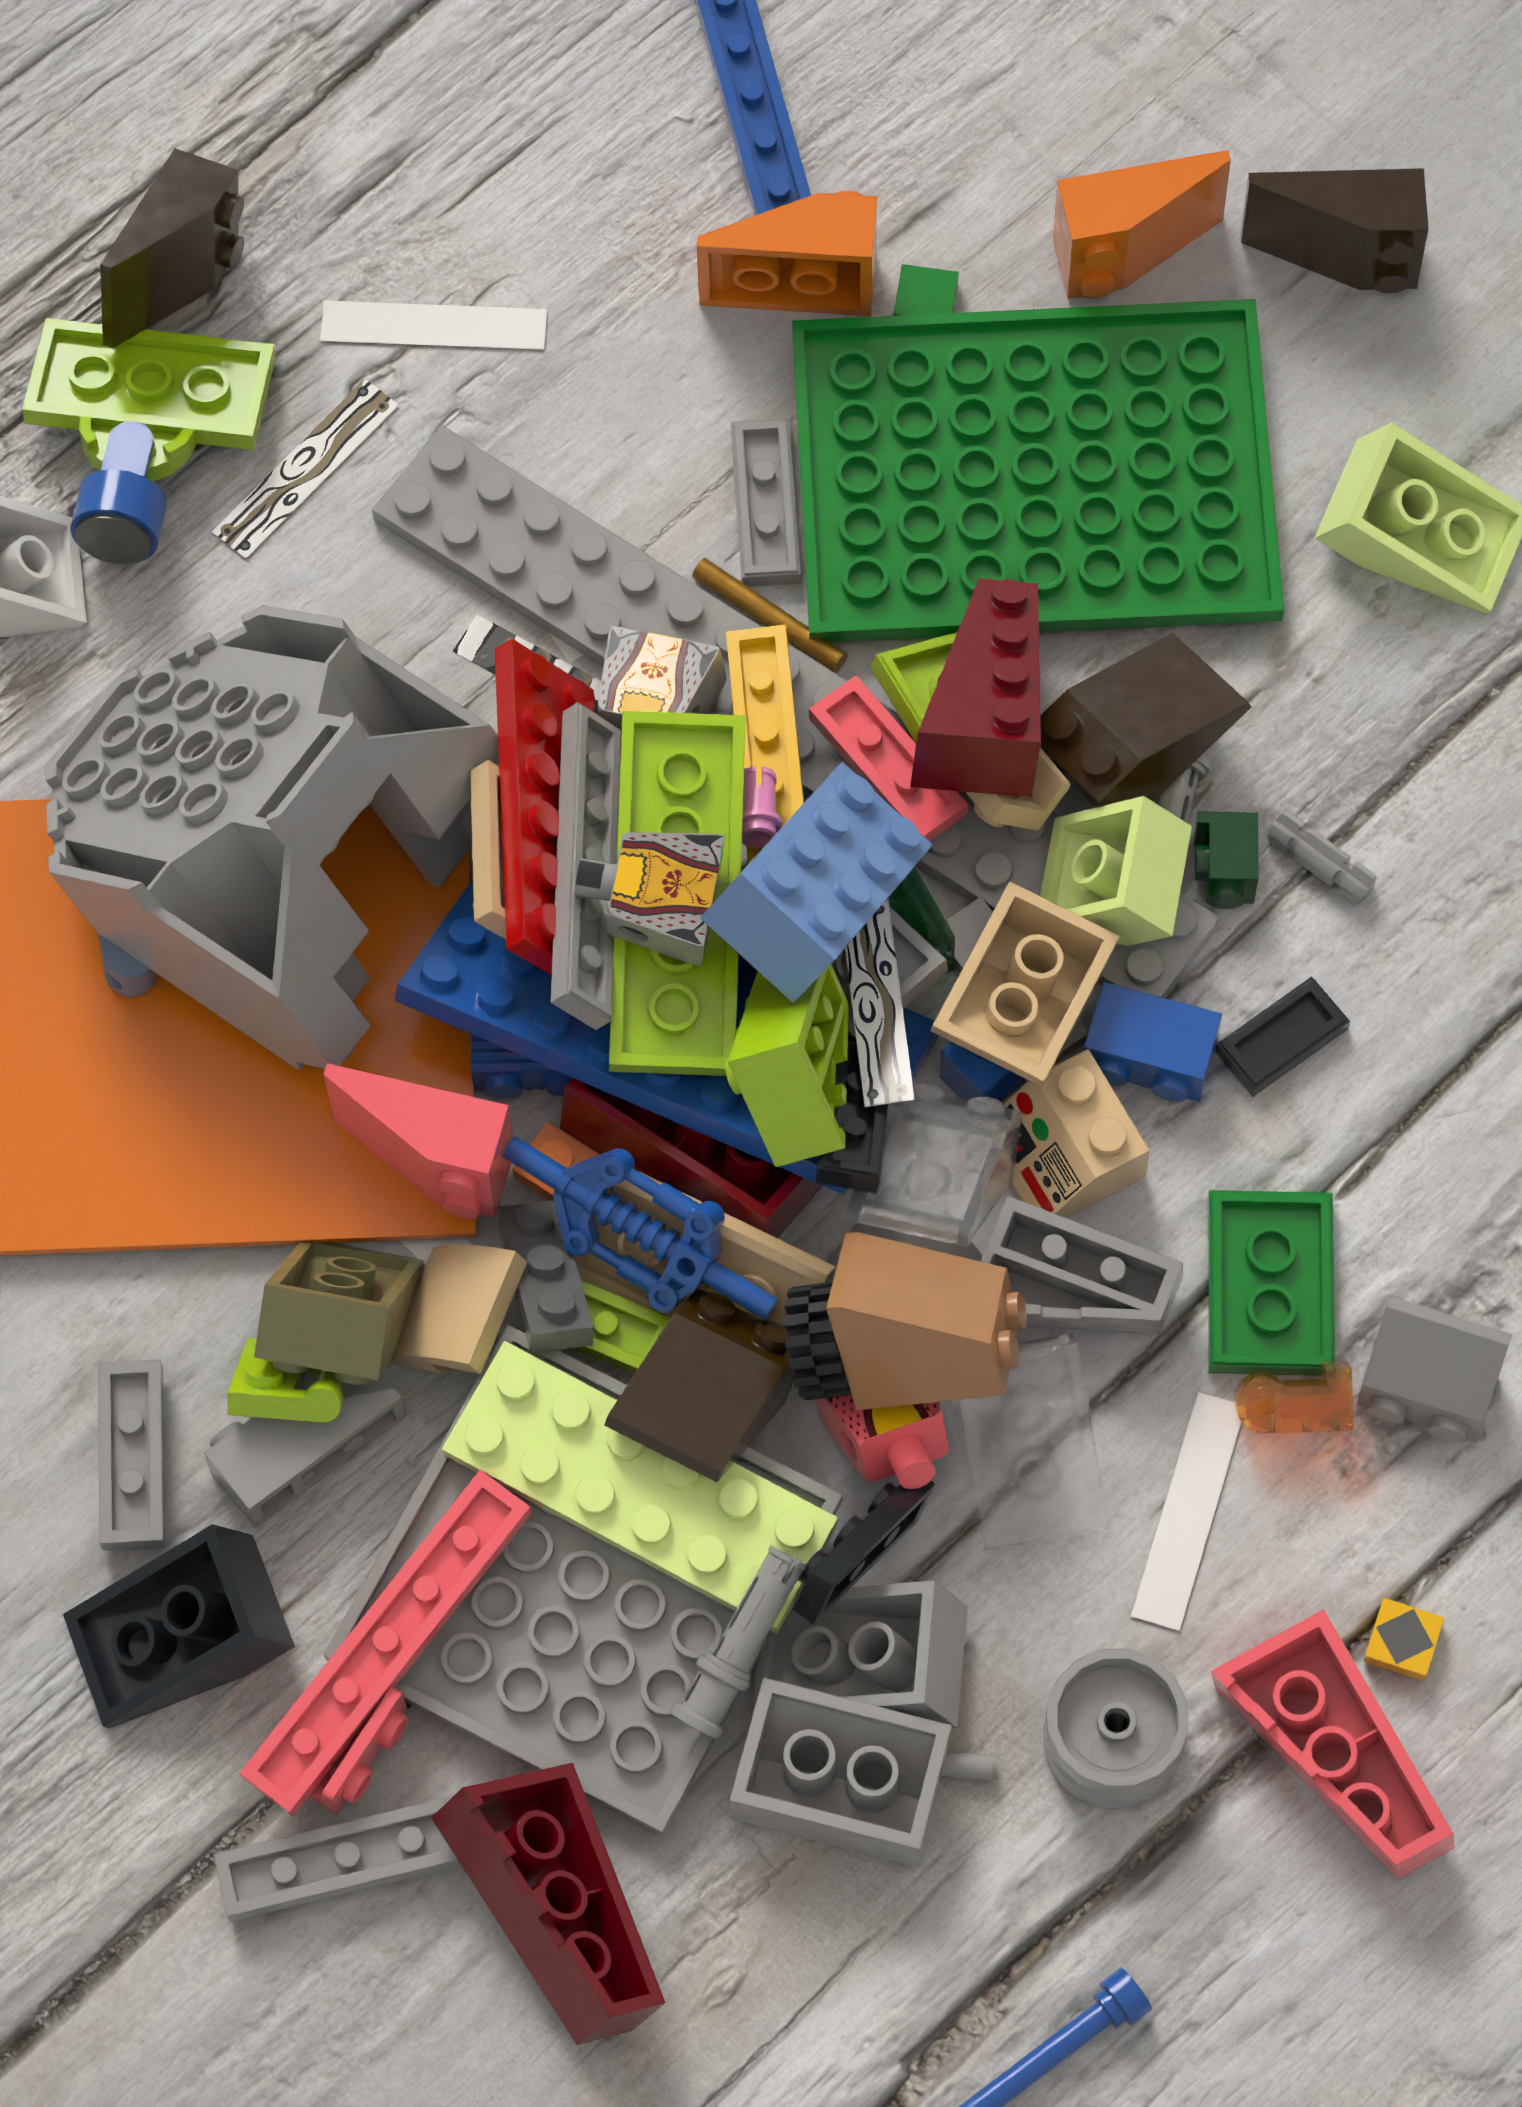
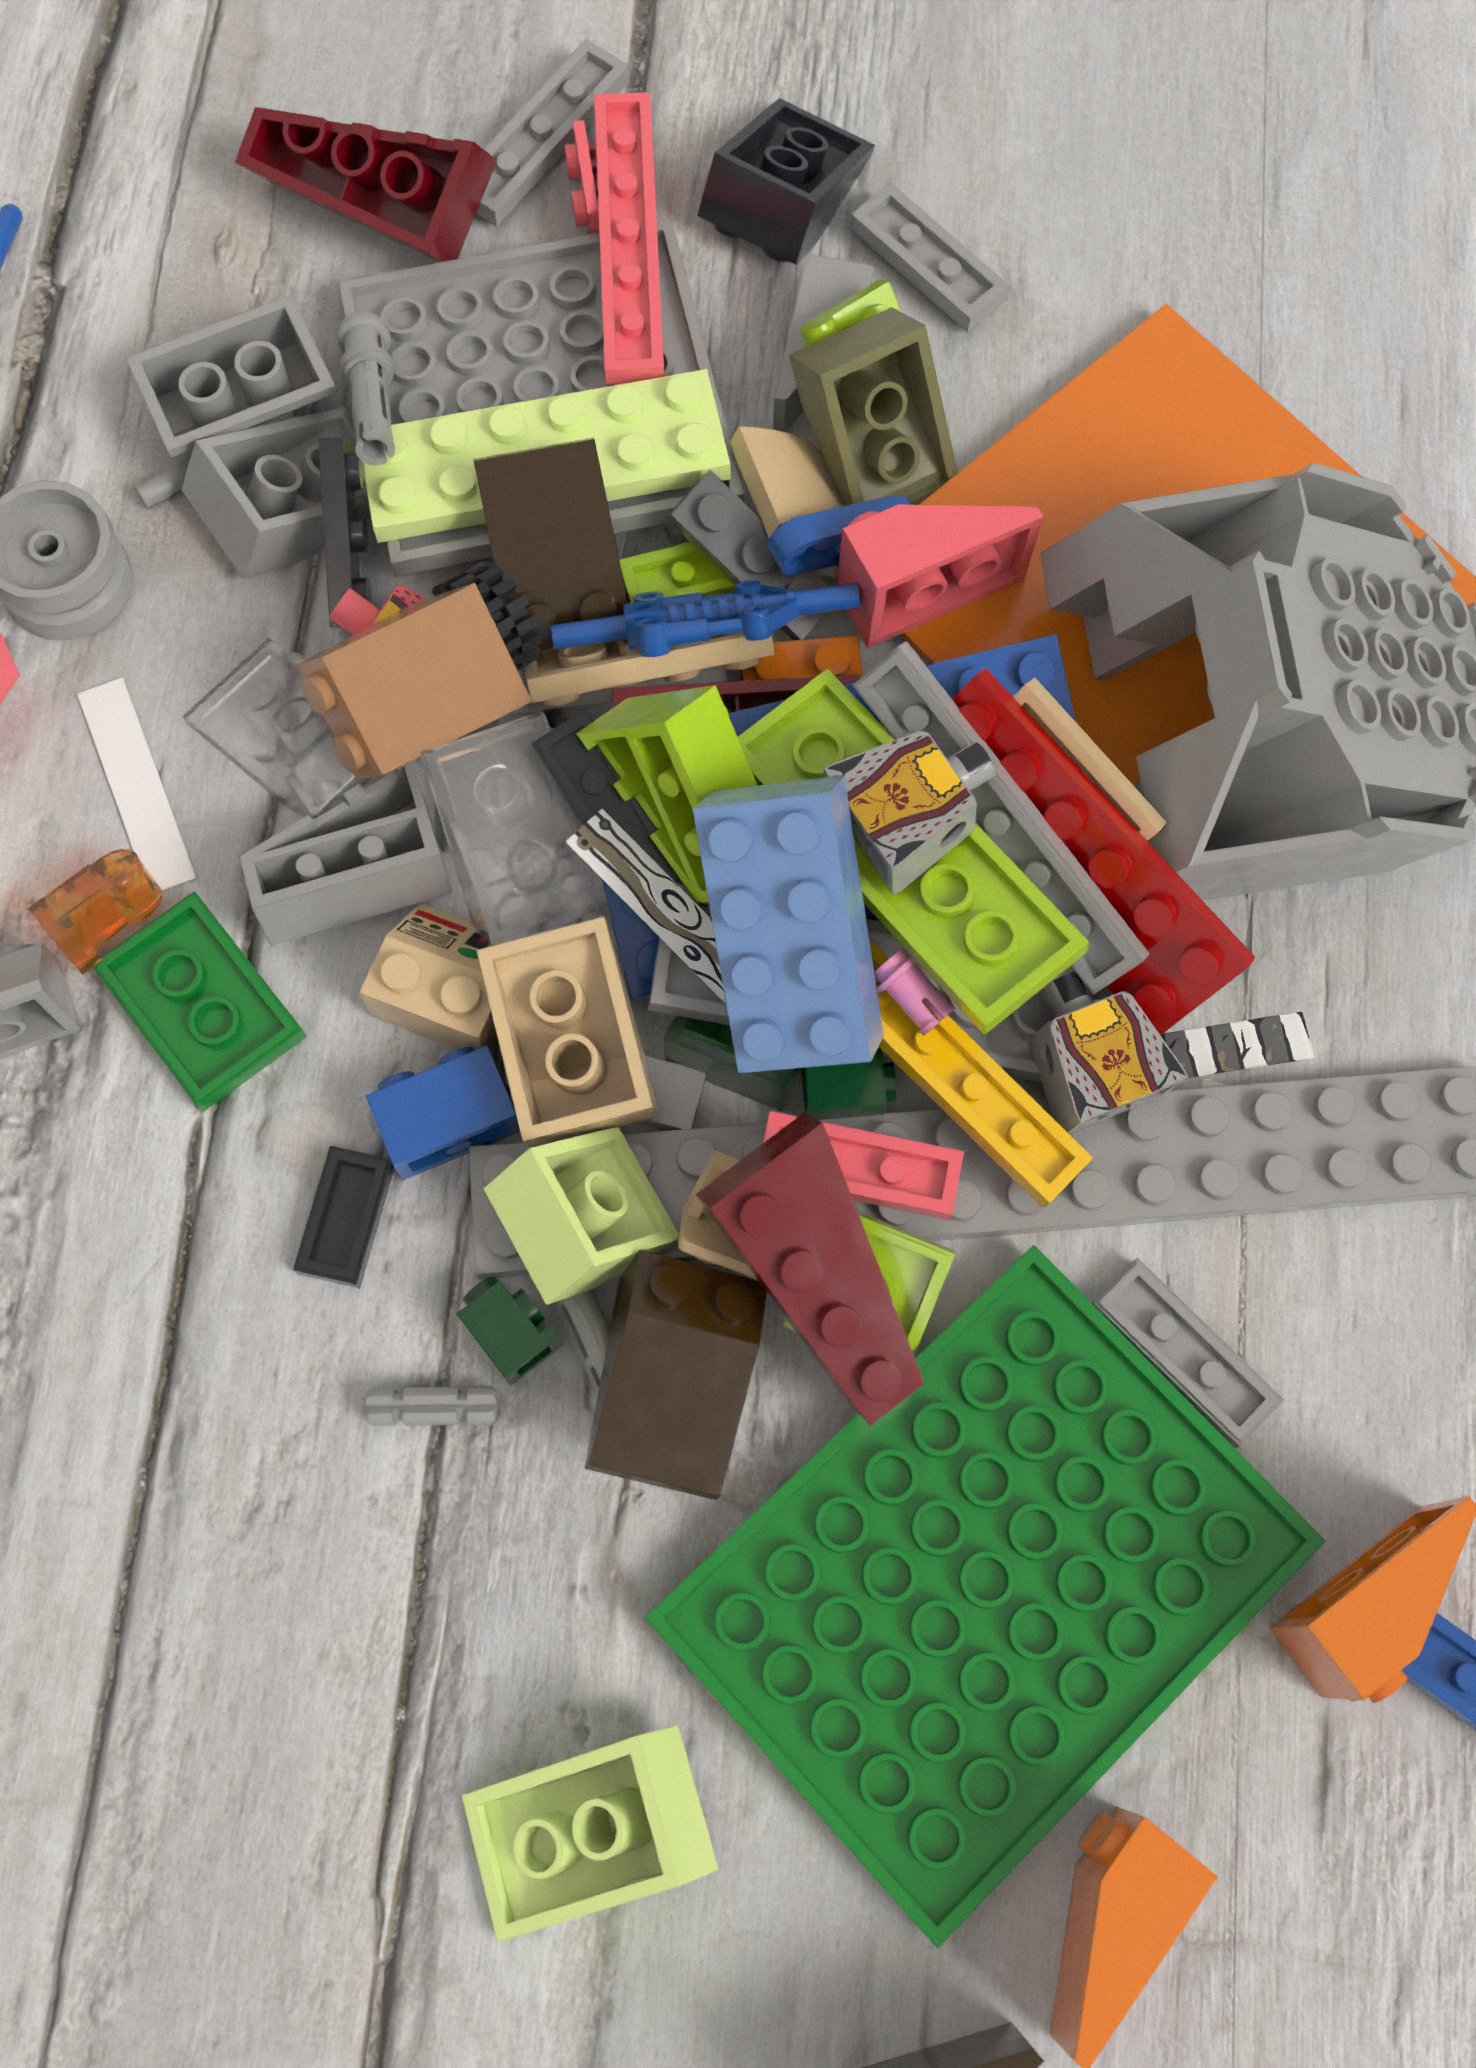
camera: 135 degrees right, 5 degrees up
(462, 1220) = (815, 538): none -> blue beam
(768, 614) = (1089, 1247): pearl gold bar -> none
(925, 291) = (1239, 1685): green tile -> none

